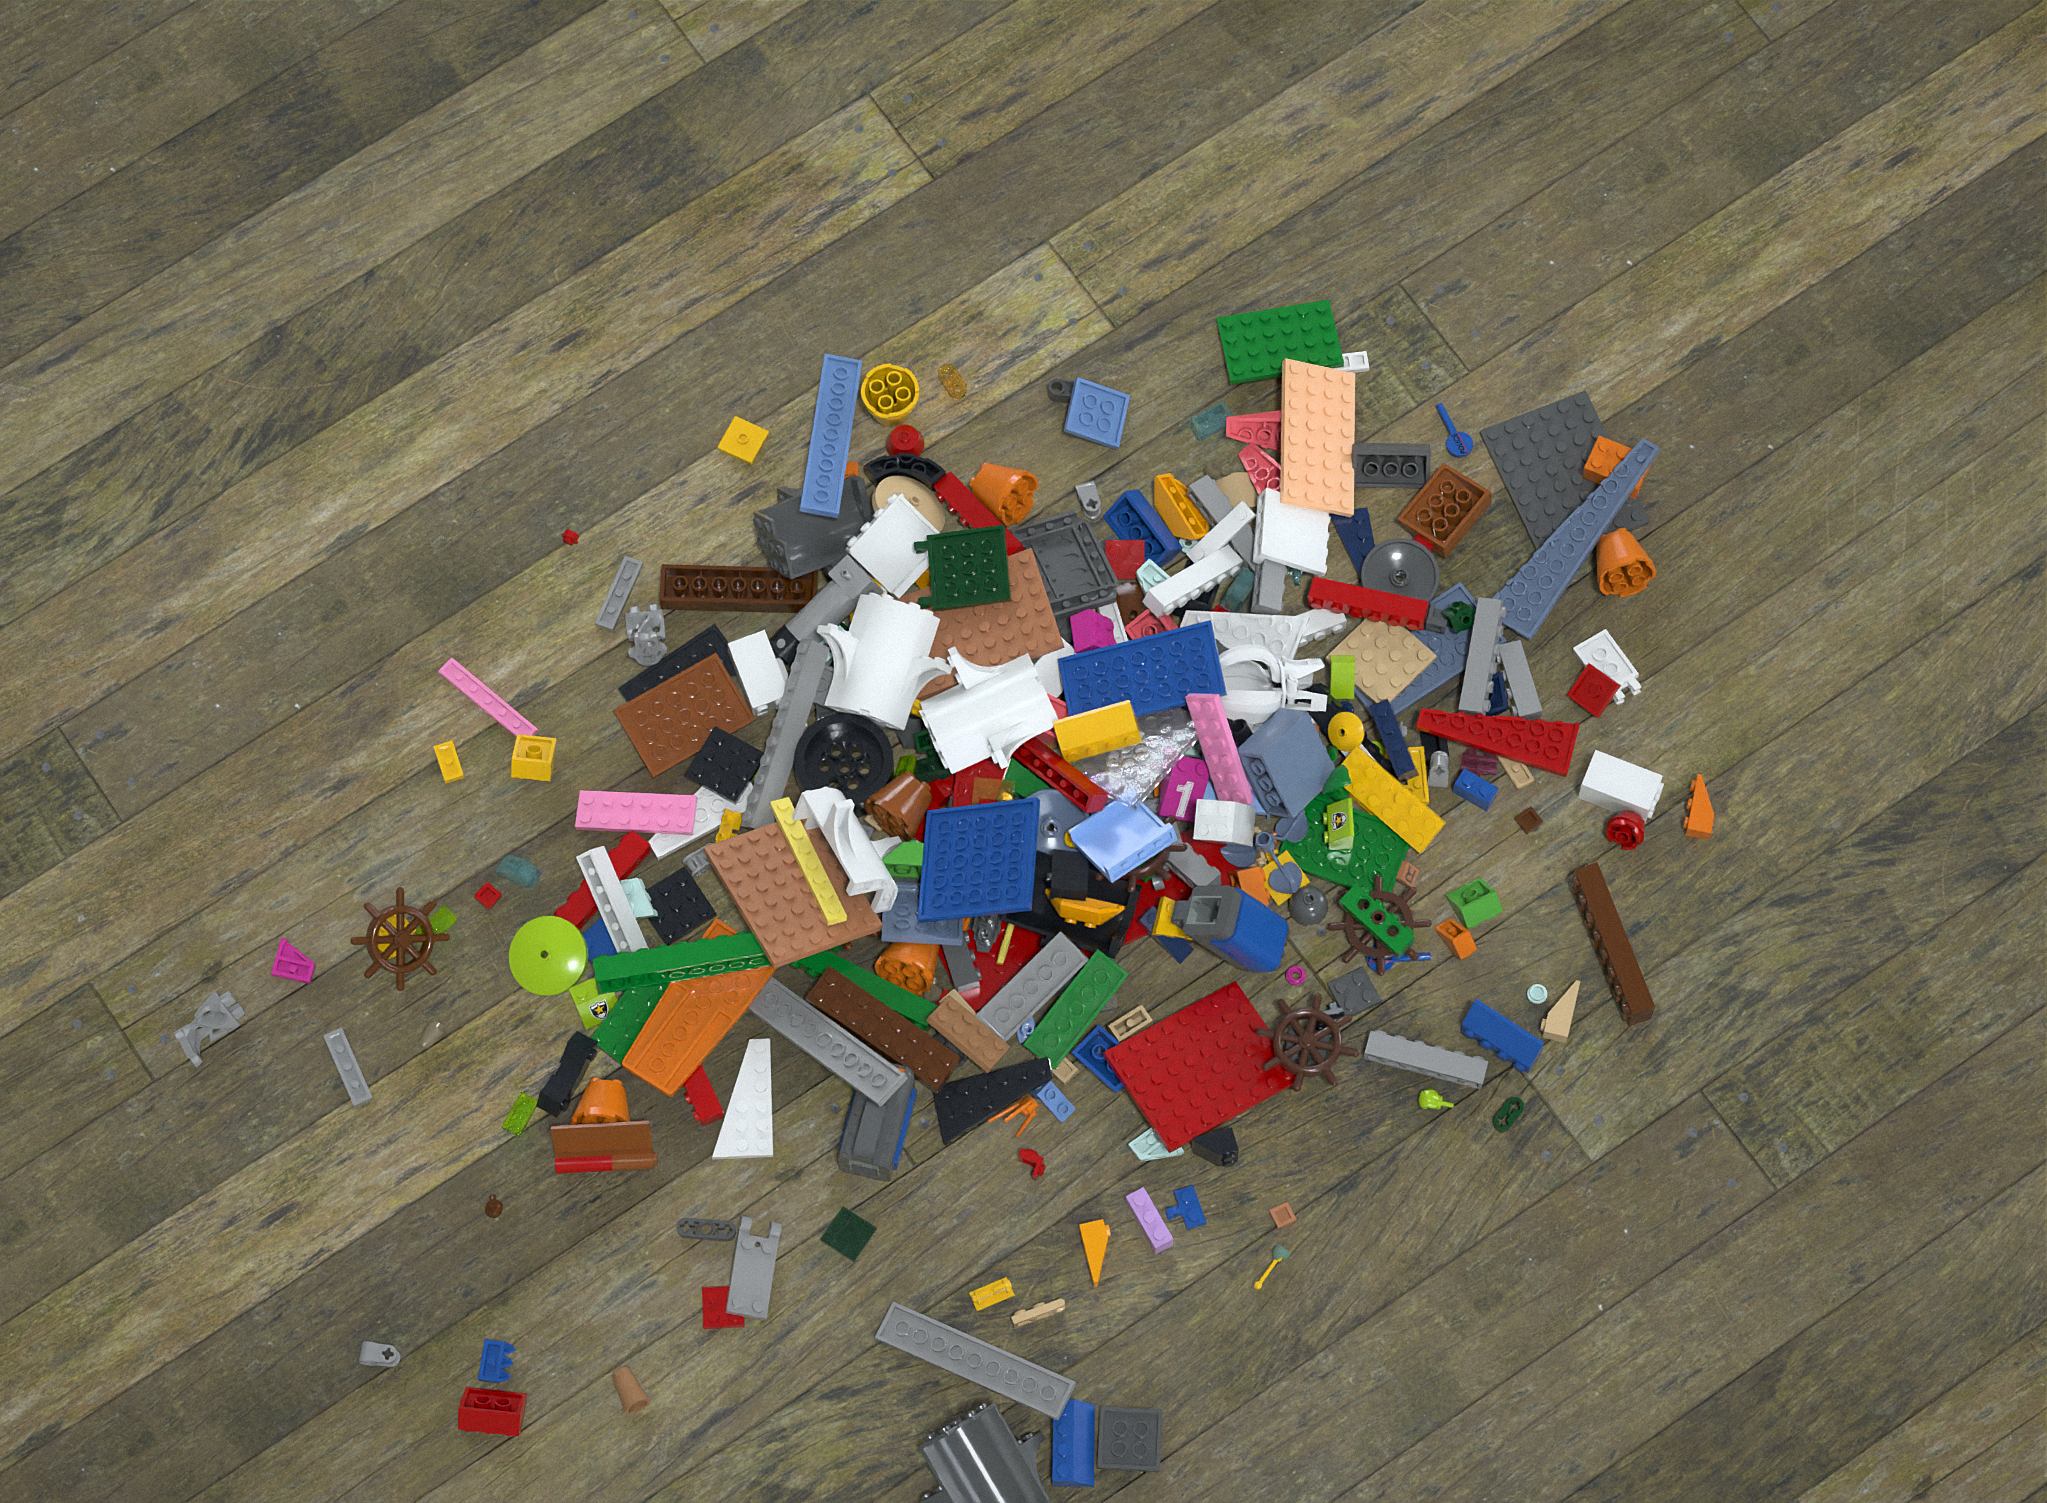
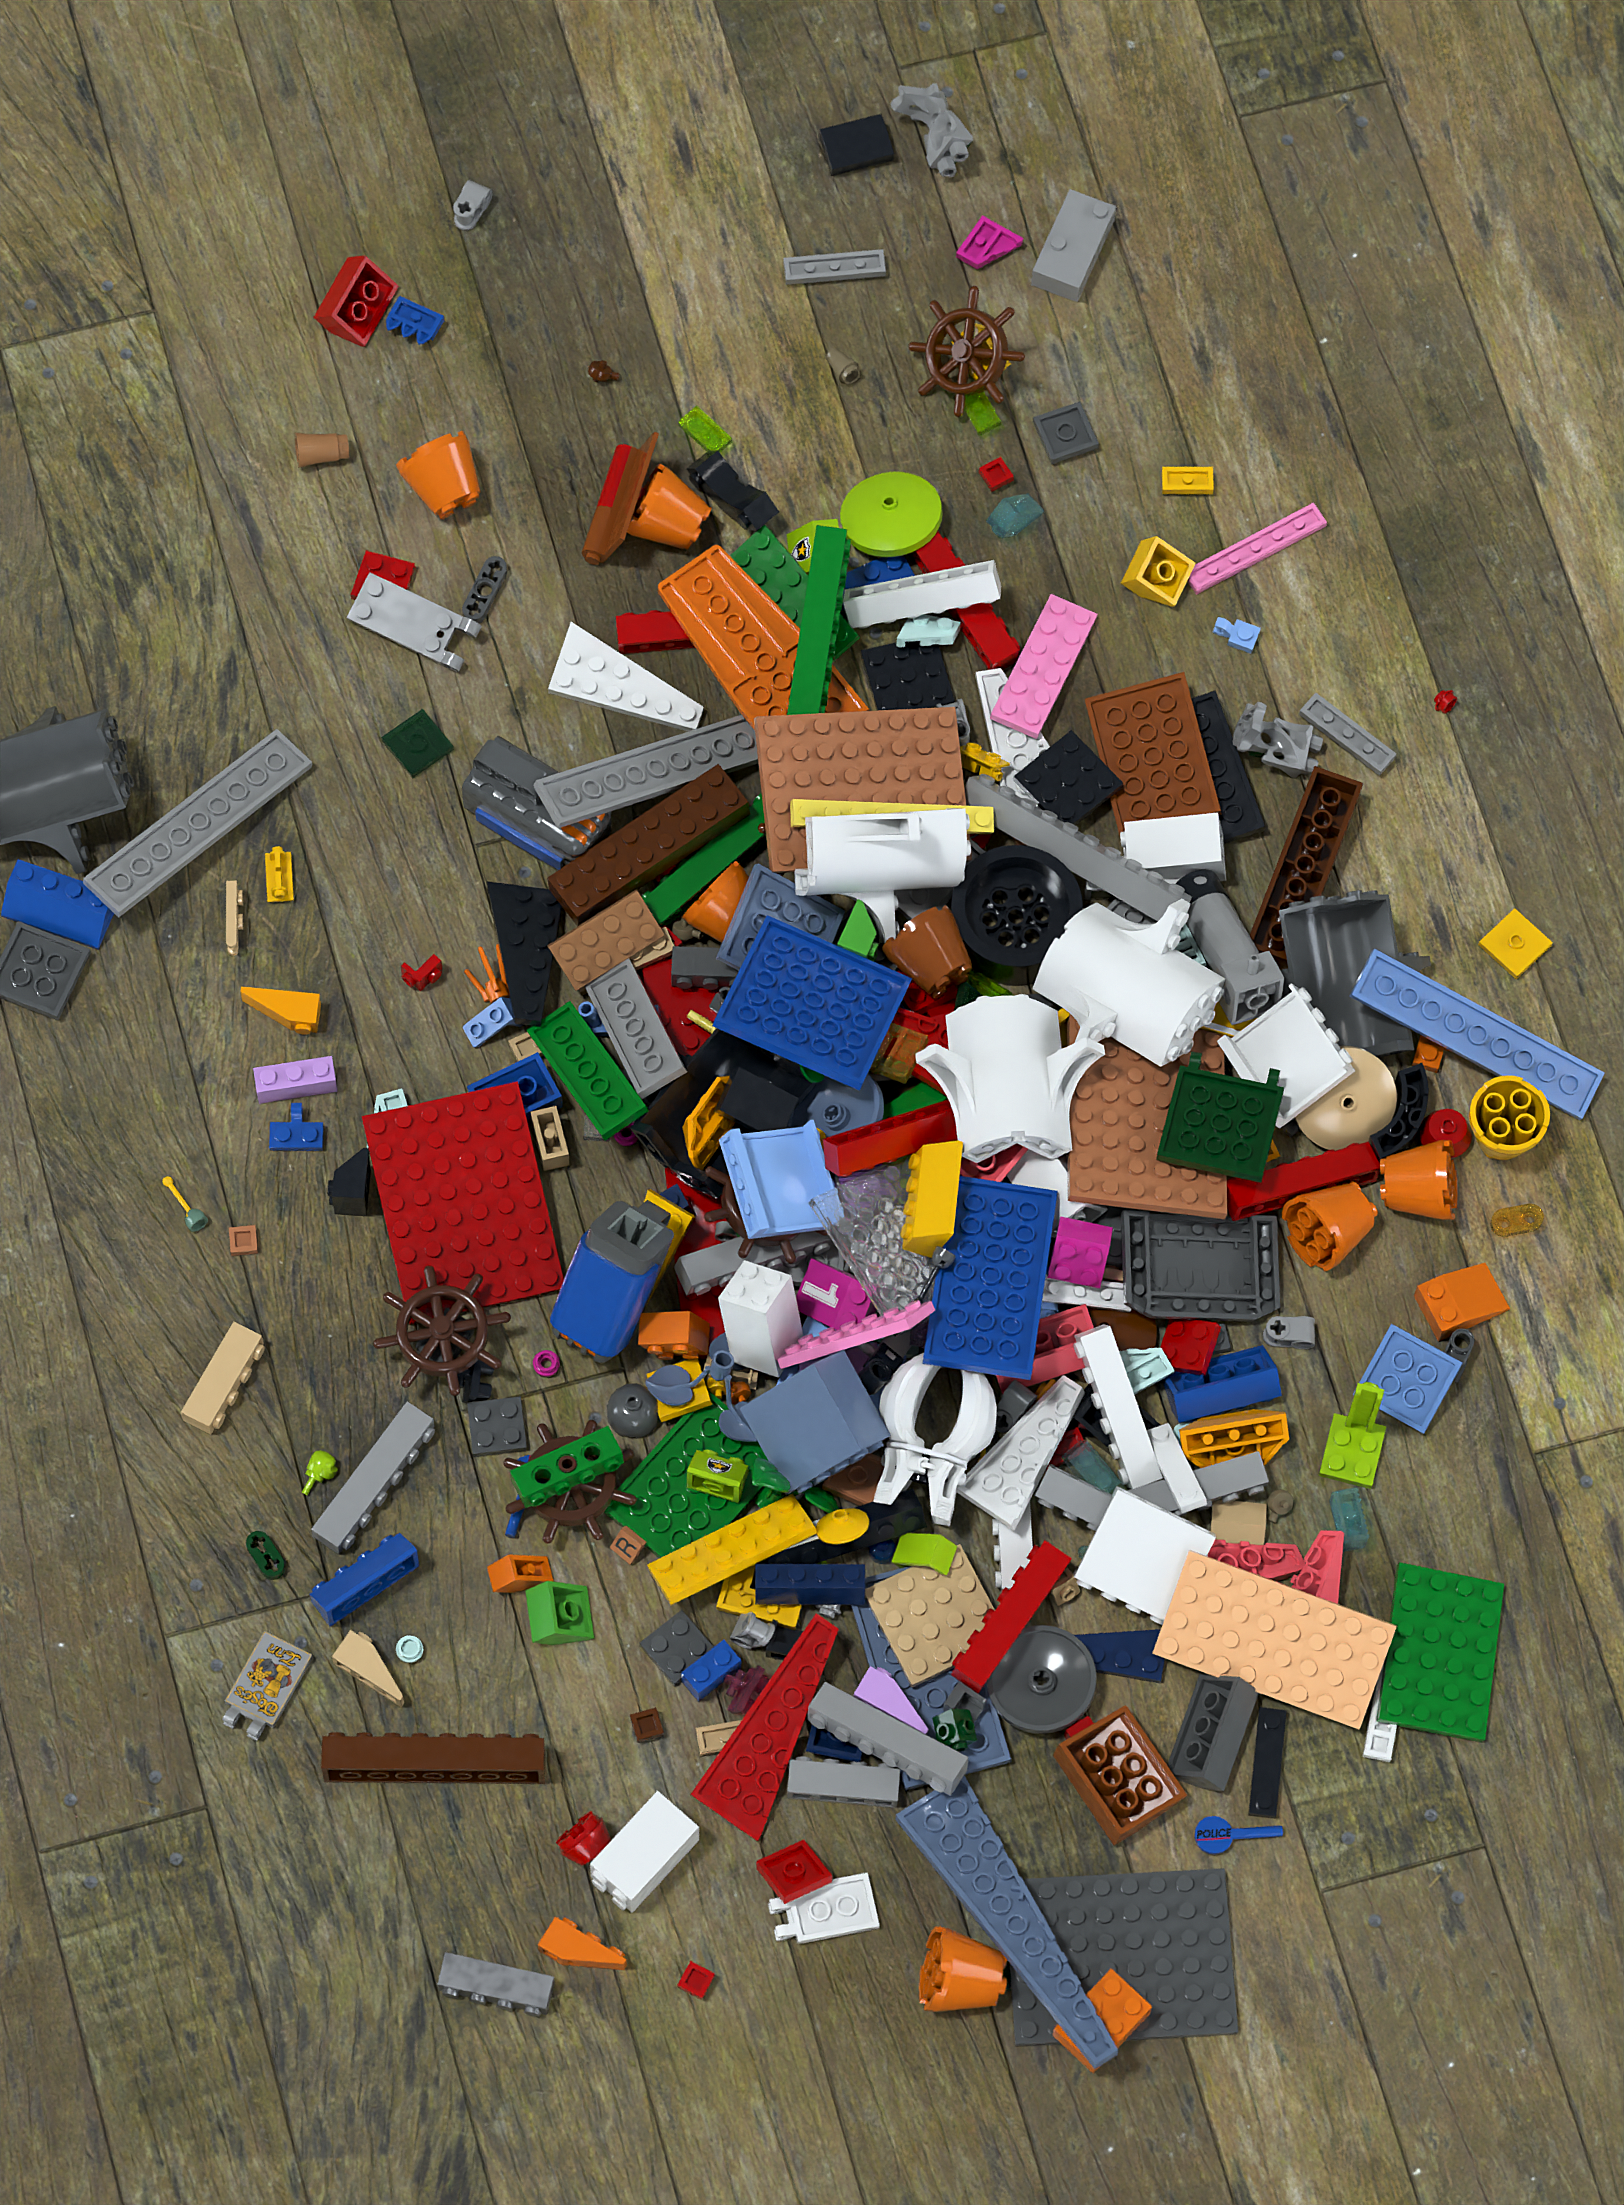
camera: 105 degrees right, 0 degrees up
(235, 1086) = (856, 144): none -> black container
(276, 900) = (1073, 245): none -> light grey brick
(437, 858) = (1065, 432): none -> dark grey plate
(562, 690) = (1240, 635): none -> light blue plate
(624, 1287) = (442, 474): none -> orange cone
(951, 441) = (1421, 1181): none -> orange cone
(1025, 400) = (1460, 1300): none -> orange slope
(1145, 707) = (941, 1259): none -> hinge
(1154, 436) = (1355, 1440): none -> lime bracket
(1393, 1189) = (222, 1378): none -> tan brick
(1396, 427) = (1267, 1762): none -> black plate
(1453, 667) = (885, 1695): none -> lavender slope
(1466, 820) = (675, 1646): none -> dark grey plate
(1600, 1080) = (266, 1684): none -> tile
(1689, 730) = (696, 1980): none -> red plate
(1745, 854) = (495, 1984): none -> flat silver brick

